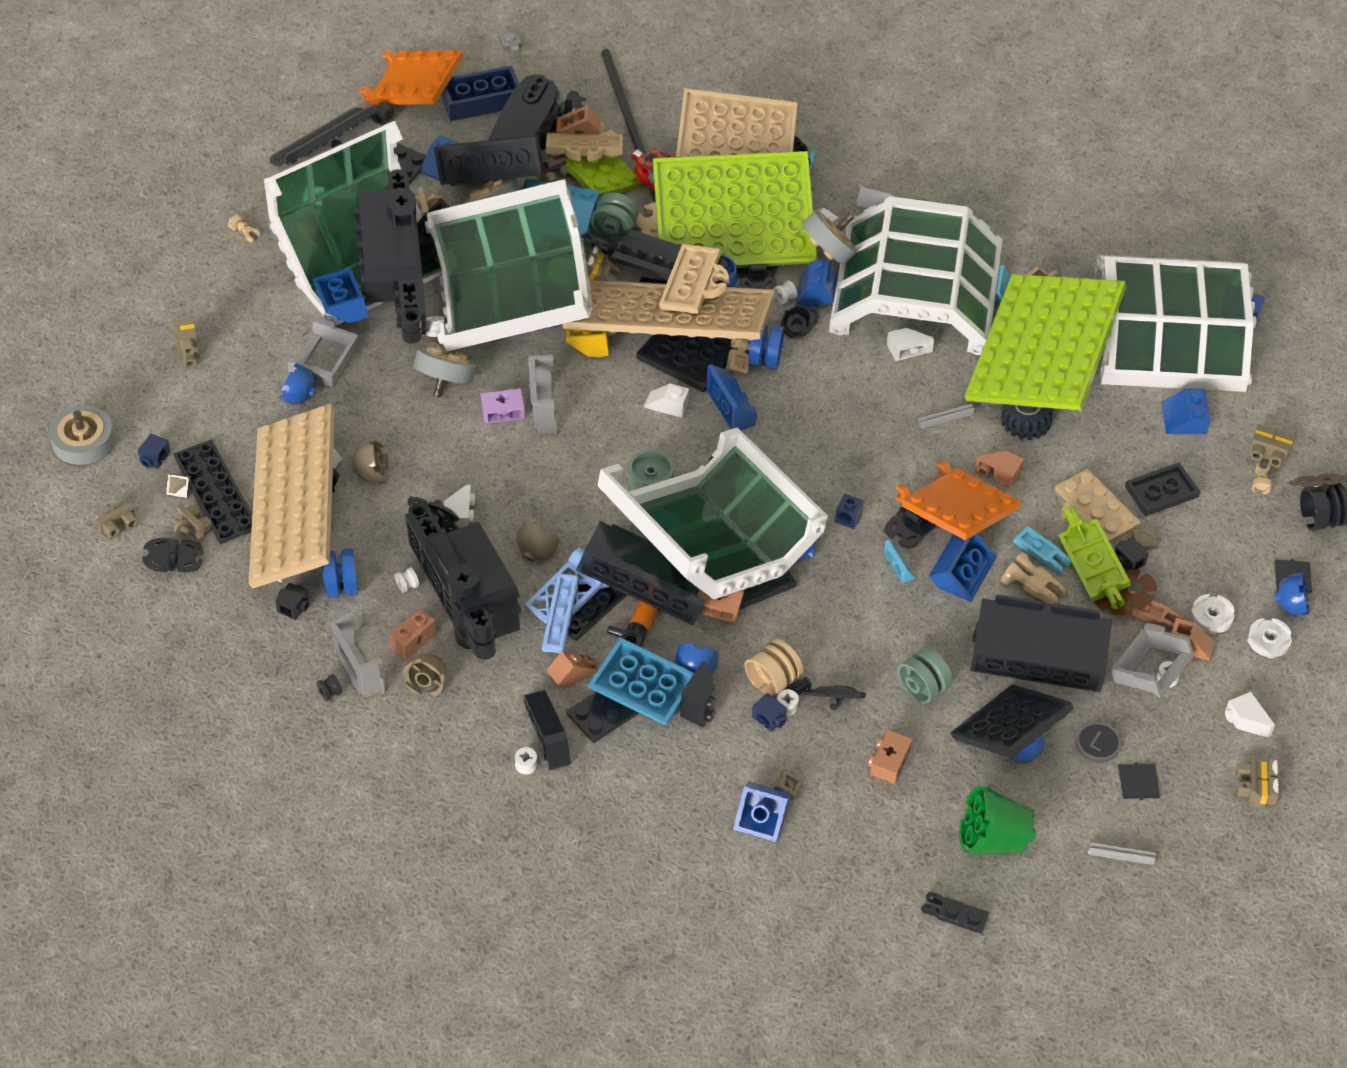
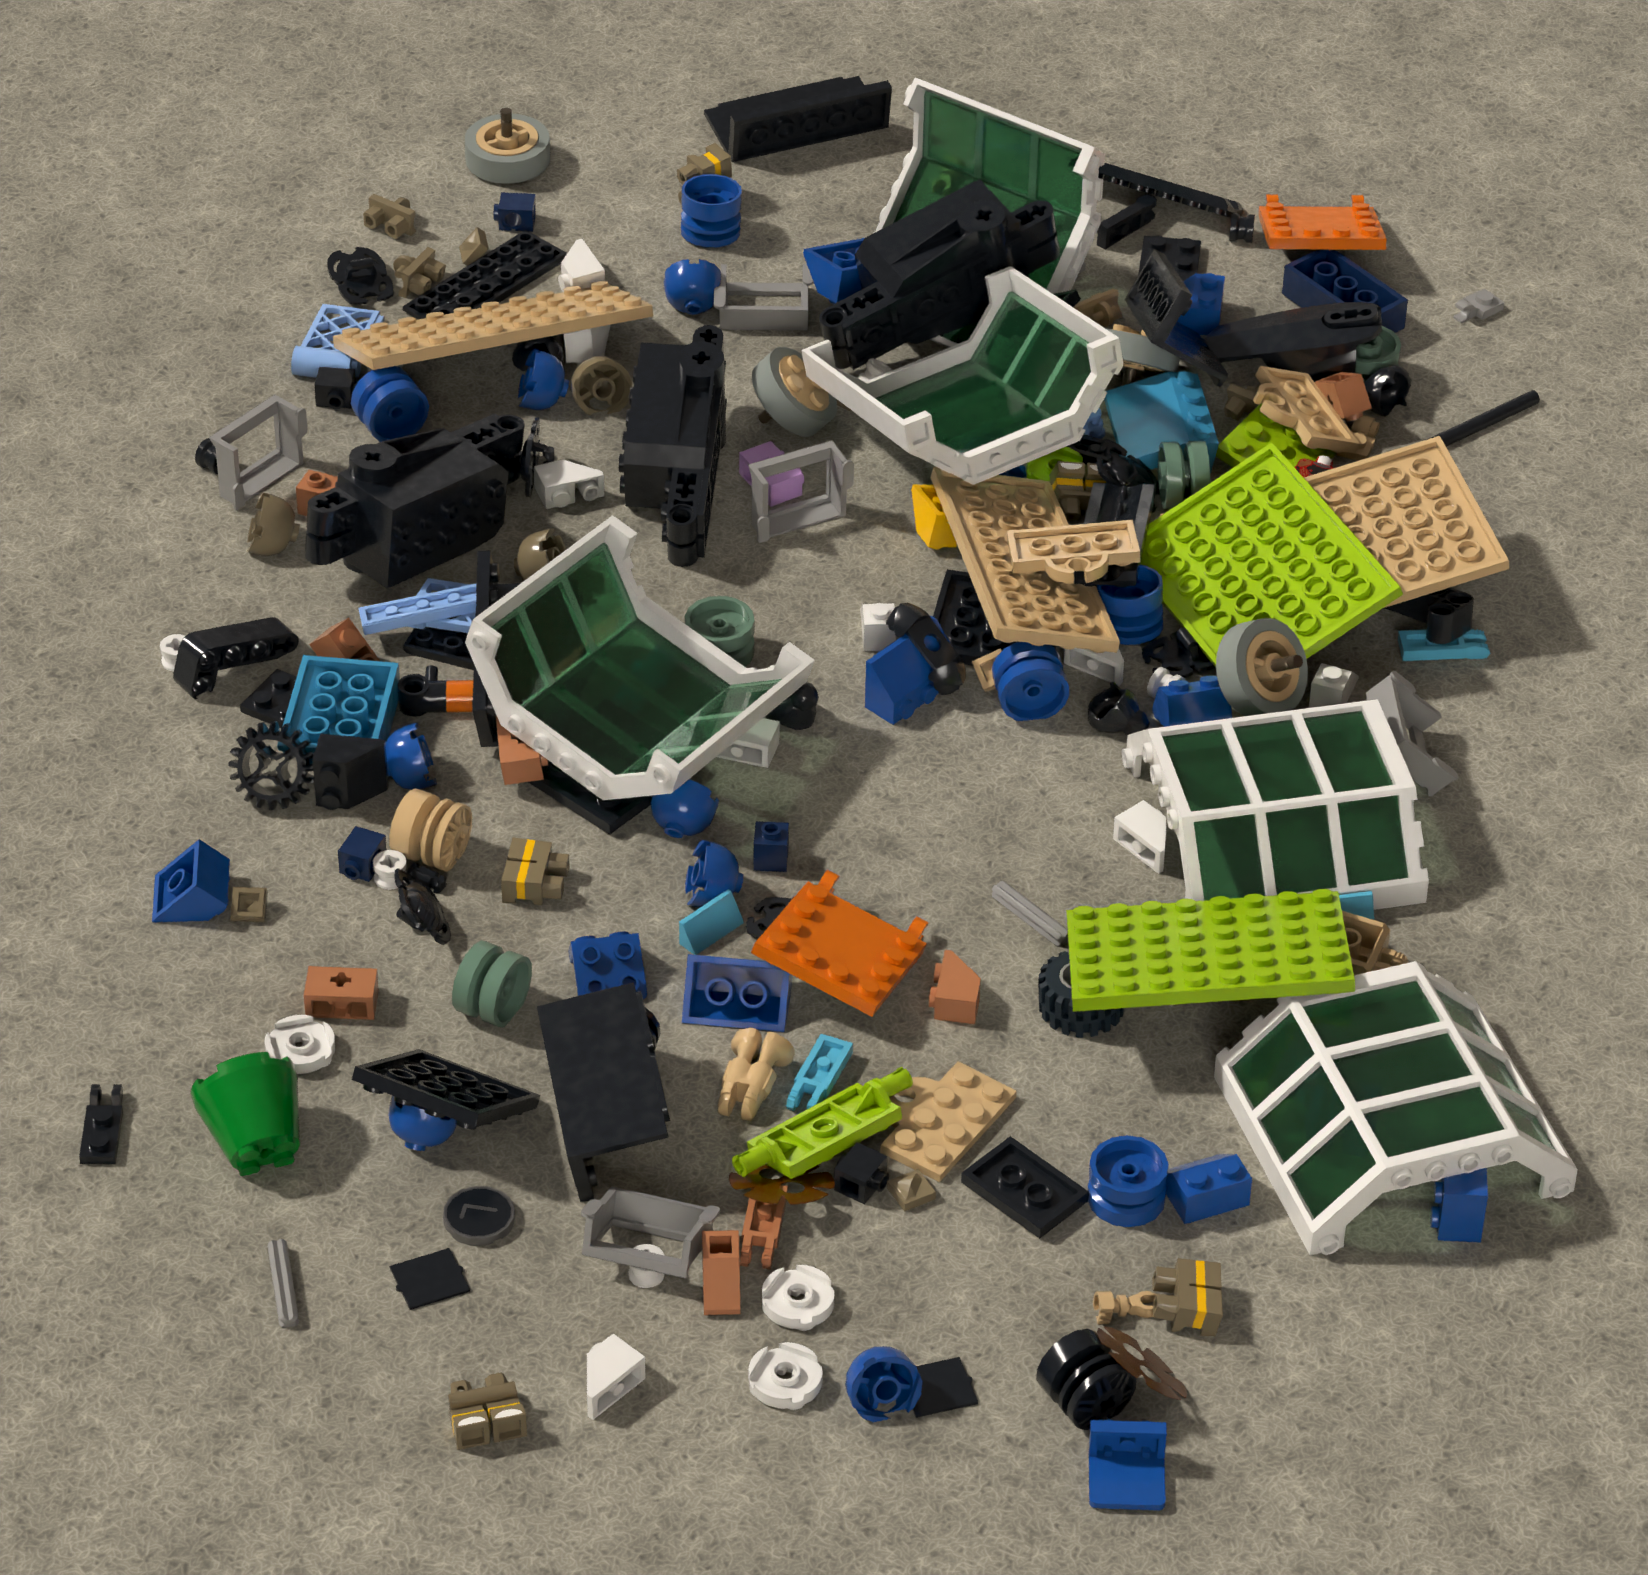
camera: 70 degrees right, 10 degrees down
(134, 279) = (800, 116): none -> black piece
(224, 349) = (711, 210): none -> blue wheel
(238, 436) = (580, 267): none -> white slope
(257, 599) = (307, 359): none -> light blue piece
(347, 487) = (542, 381): none -> blue cylinder
(472, 432) = (676, 438): none -> black piece
(680, 731) = (264, 752): none -> black gear
(713, 376) = (946, 663): none -> black piece
(820, 632) = (529, 872): none -> dark tan hips
(862, 544) = (714, 871): none -> blue cylinder
(919, 617) = (607, 962): none -> blue bracket
(924, 802) = (317, 1038): none -> white plate
(1181, 441) = (1127, 1181): none -> blue wheel

